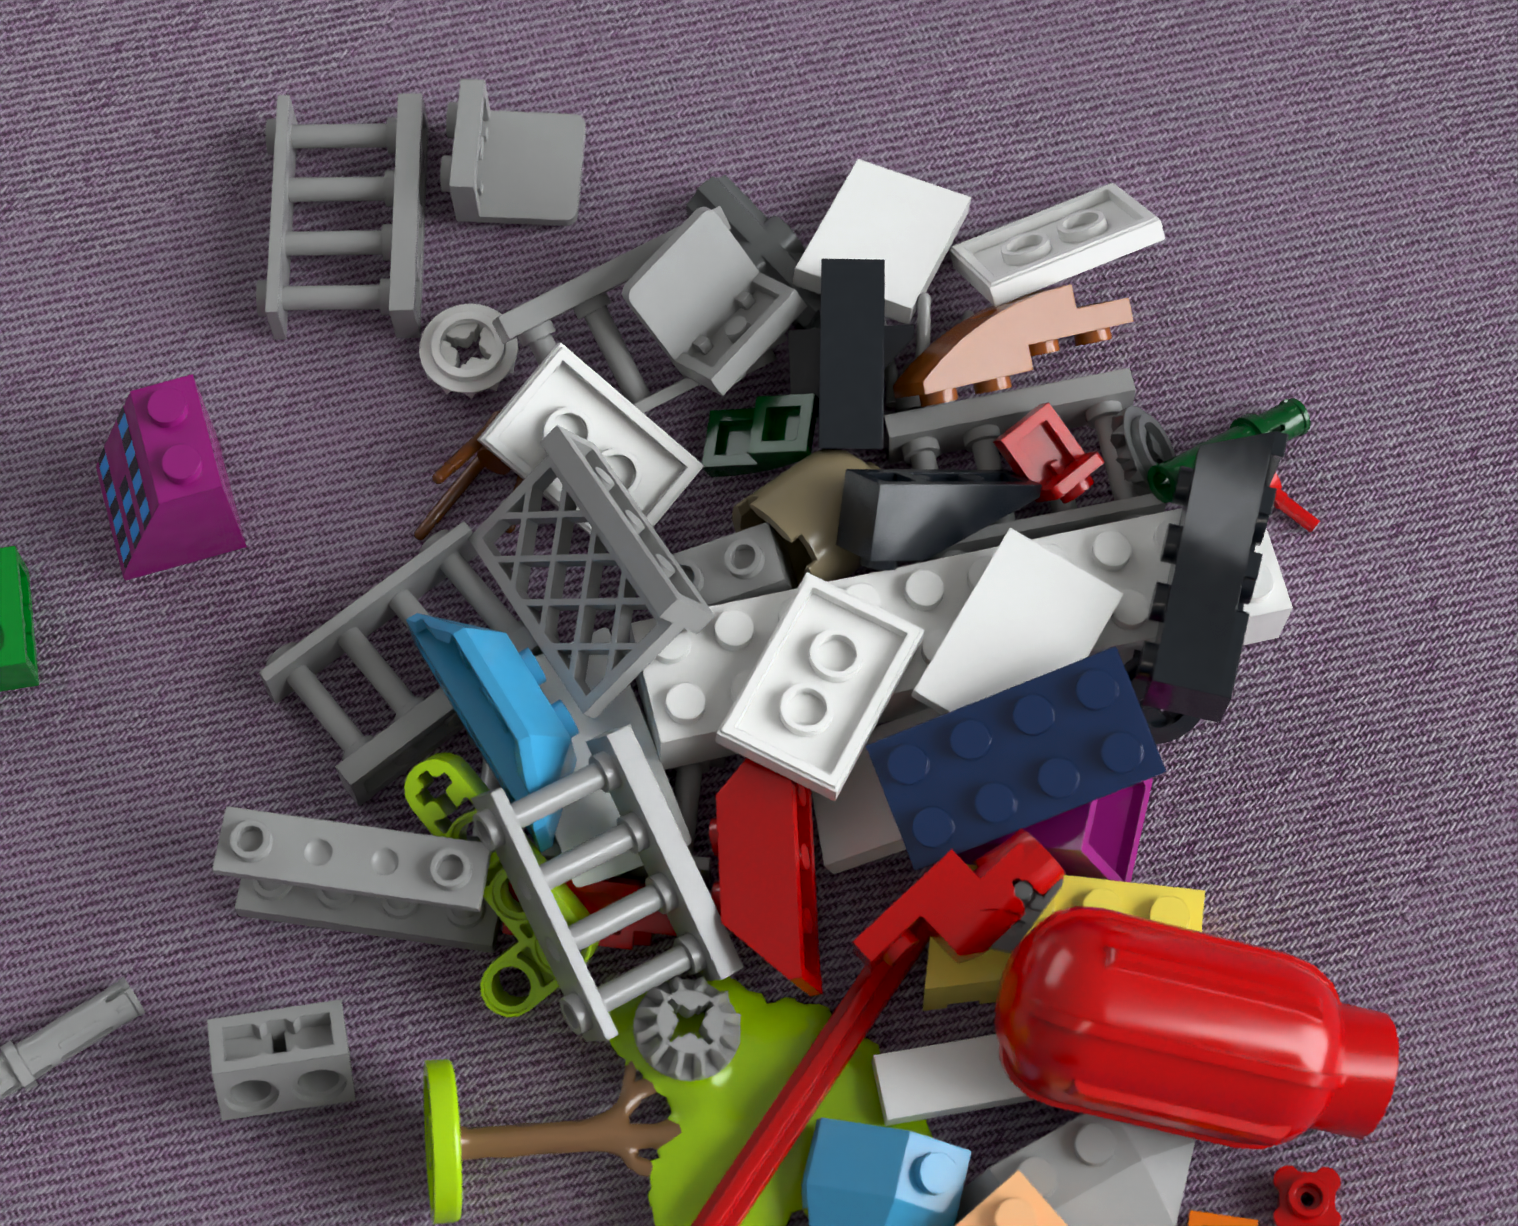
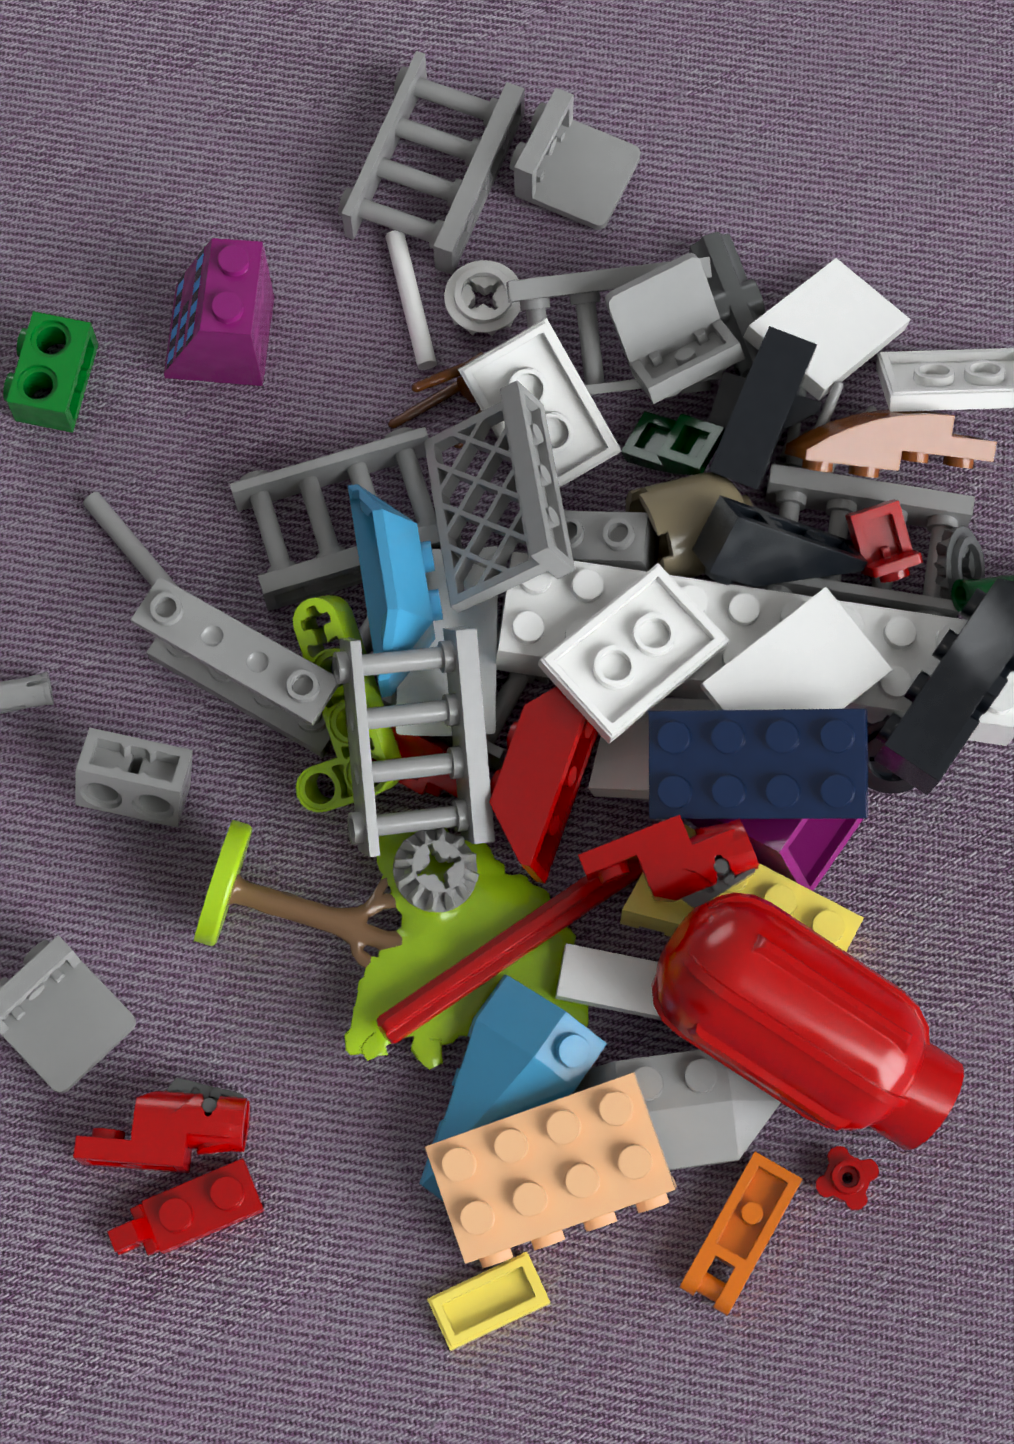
camera: 20 degrees right, 5 degrees up
(156, 787) = (125, 538): none -> light grey bar
(383, 384) = (411, 300): none -> white bar

